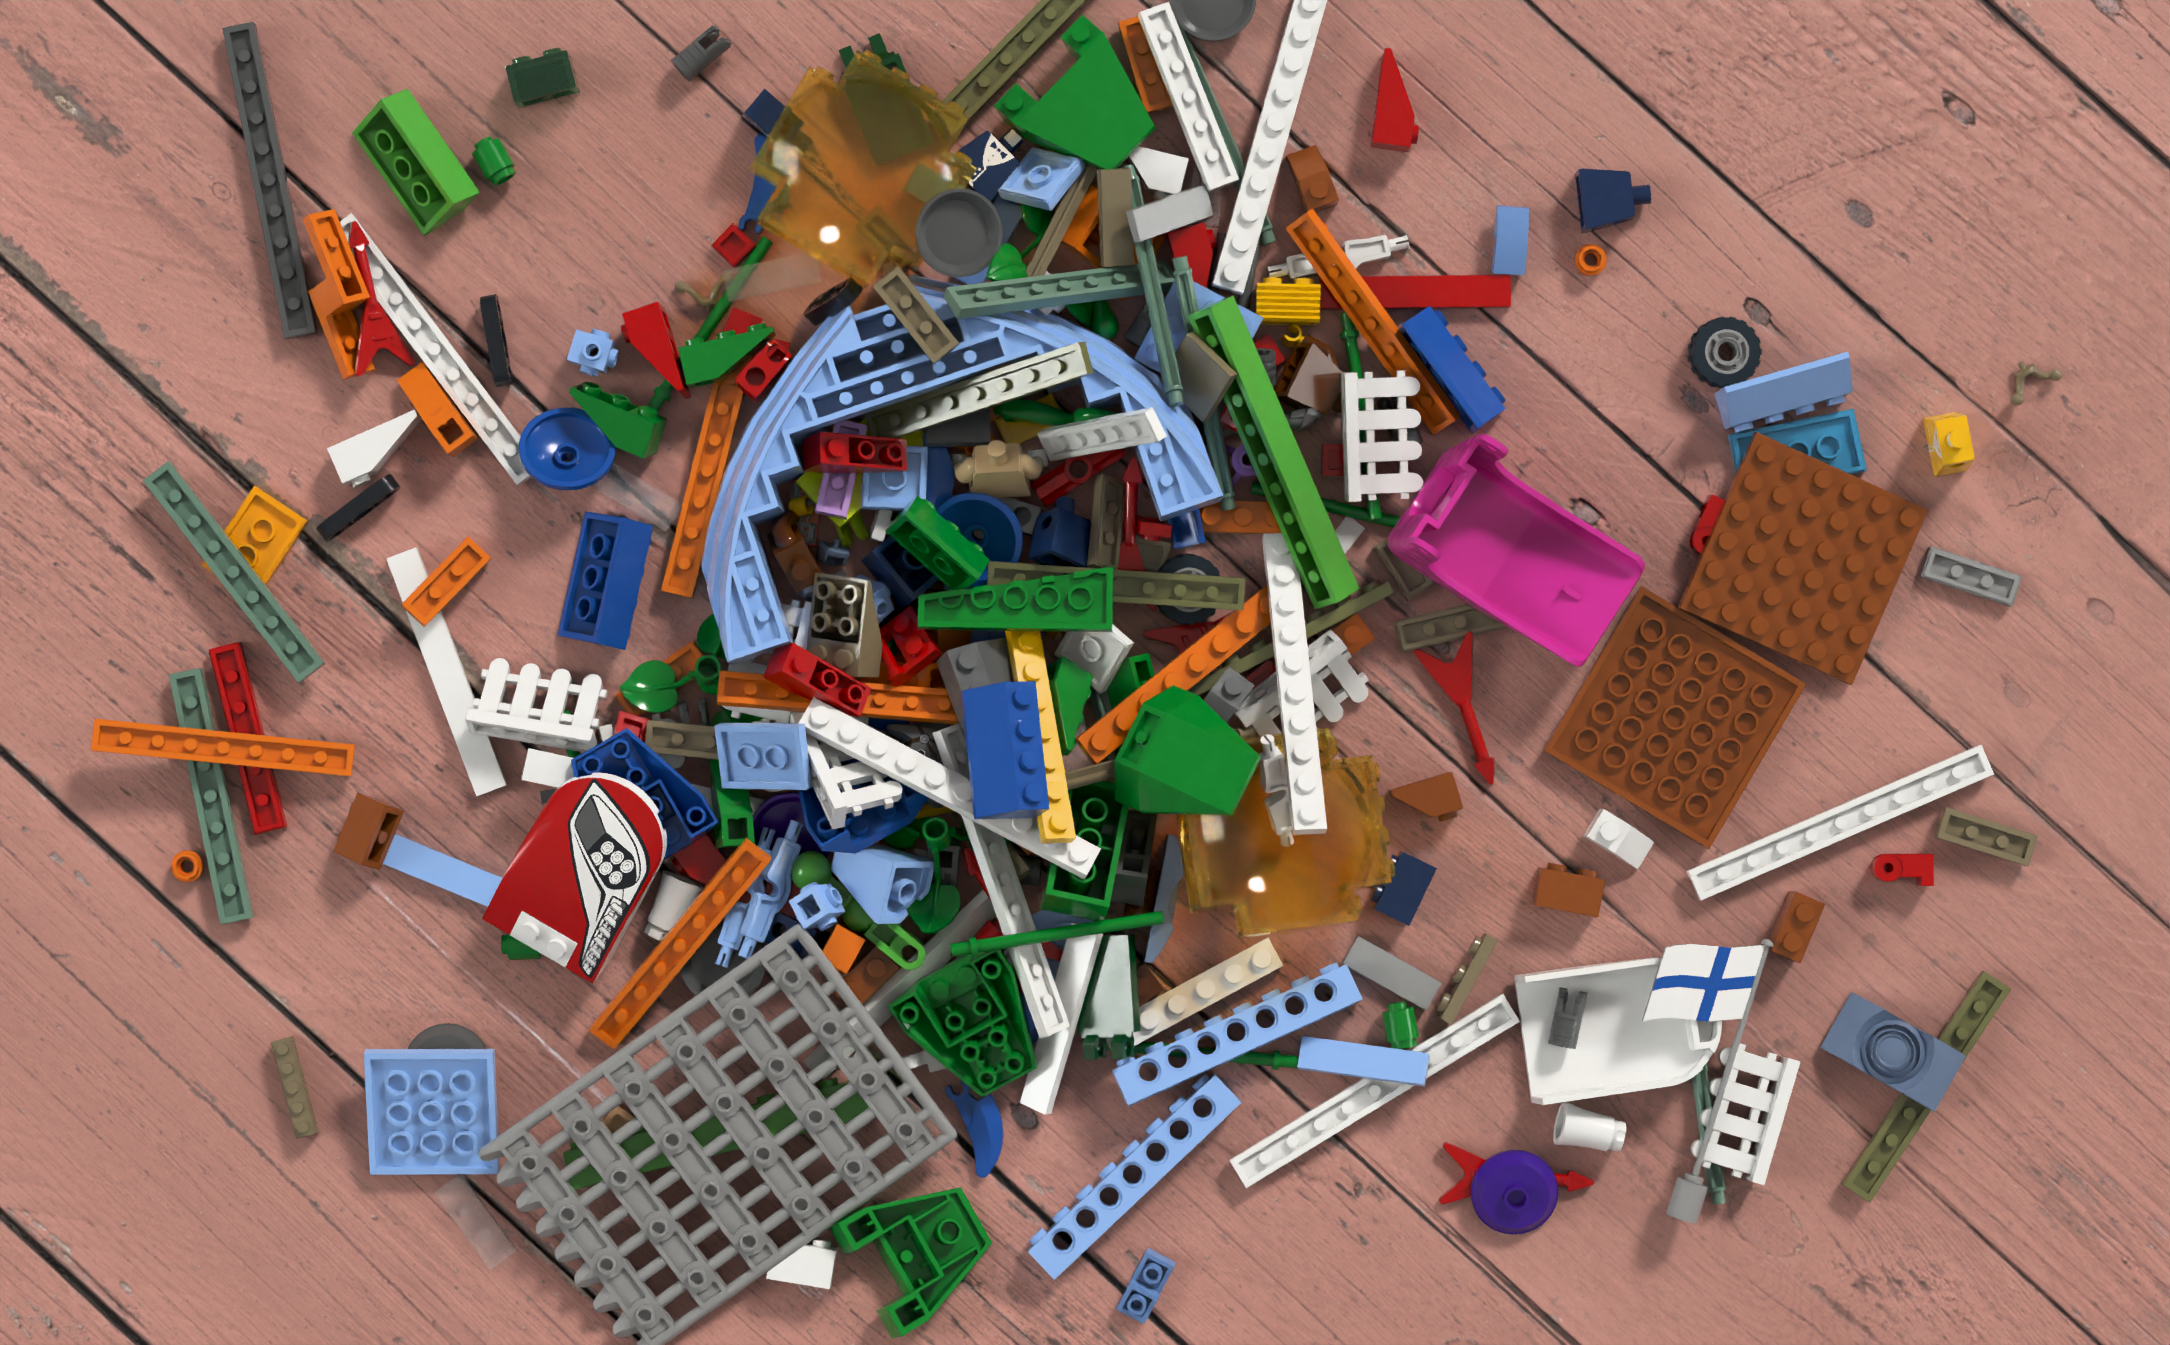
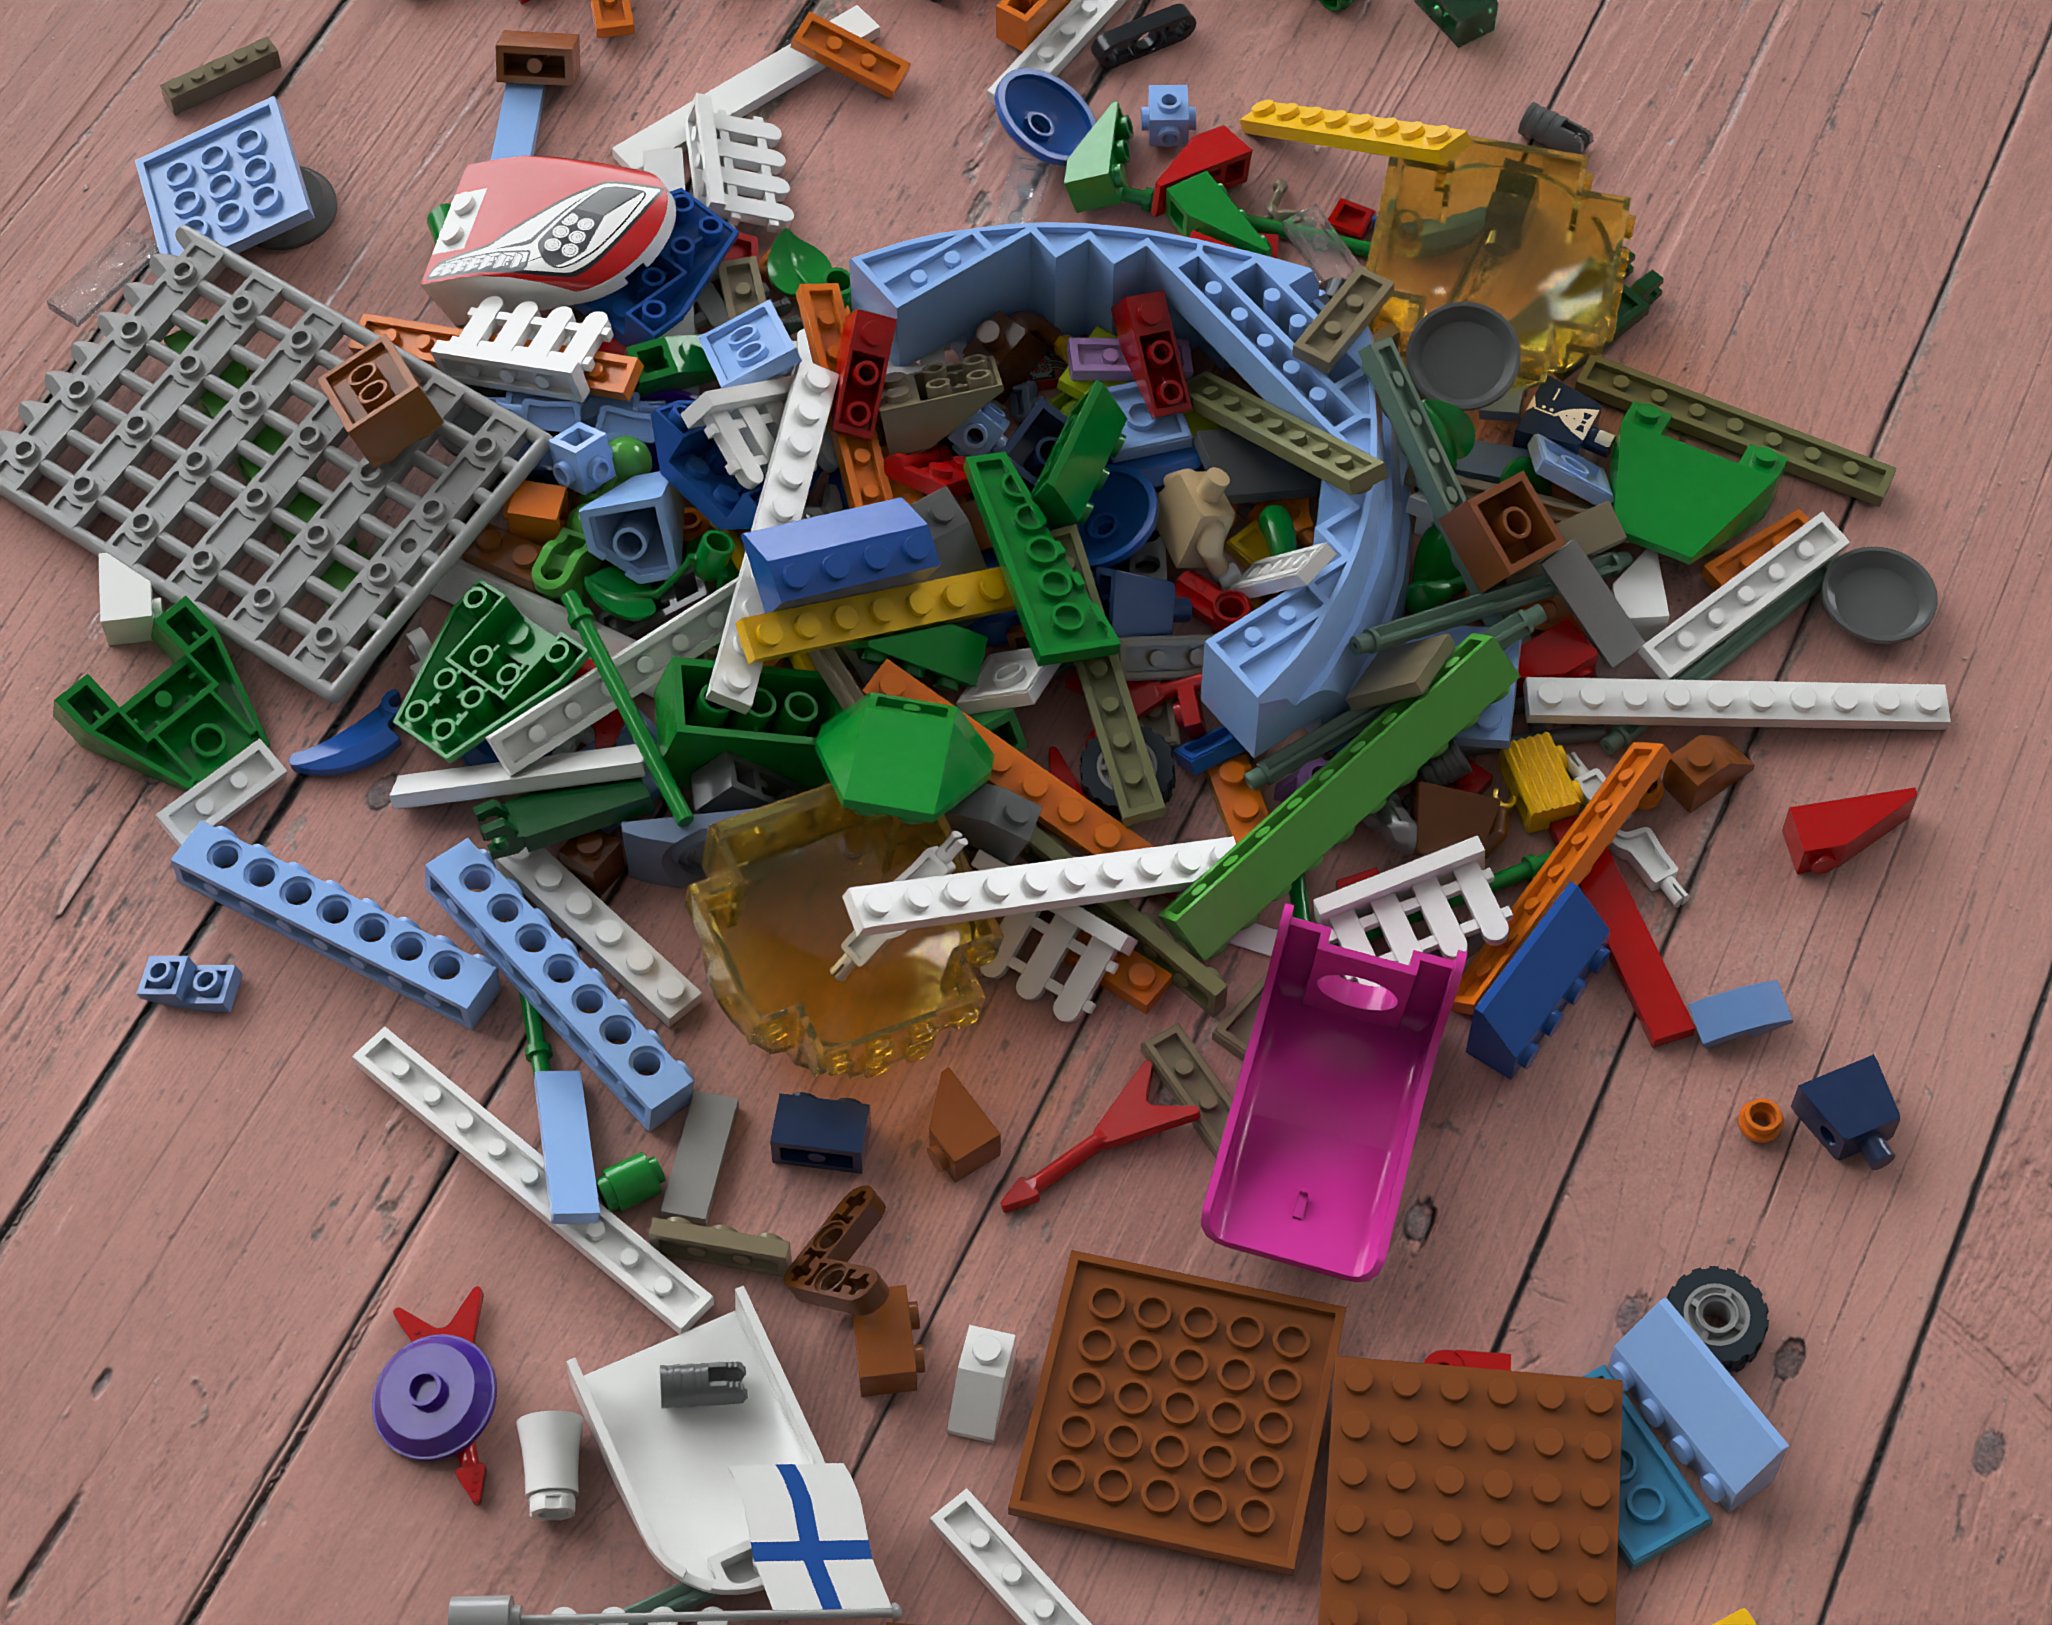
camera: 70 degrees right, 30 degrees down
(605, 580) = (909, 200): blue slope -> none
(686, 934) = (524, 369): none -> white fence
(696, 225) = (1356, 132): none -> yellow plate
(727, 1045) = (380, 402): none -> dark orange slope
(999, 1231) = (222, 792): none -> white plate
(1114, 262) = (1501, 531): none -> dark orange brick
(1510, 916) = (827, 1255): none -> reddish brown beam

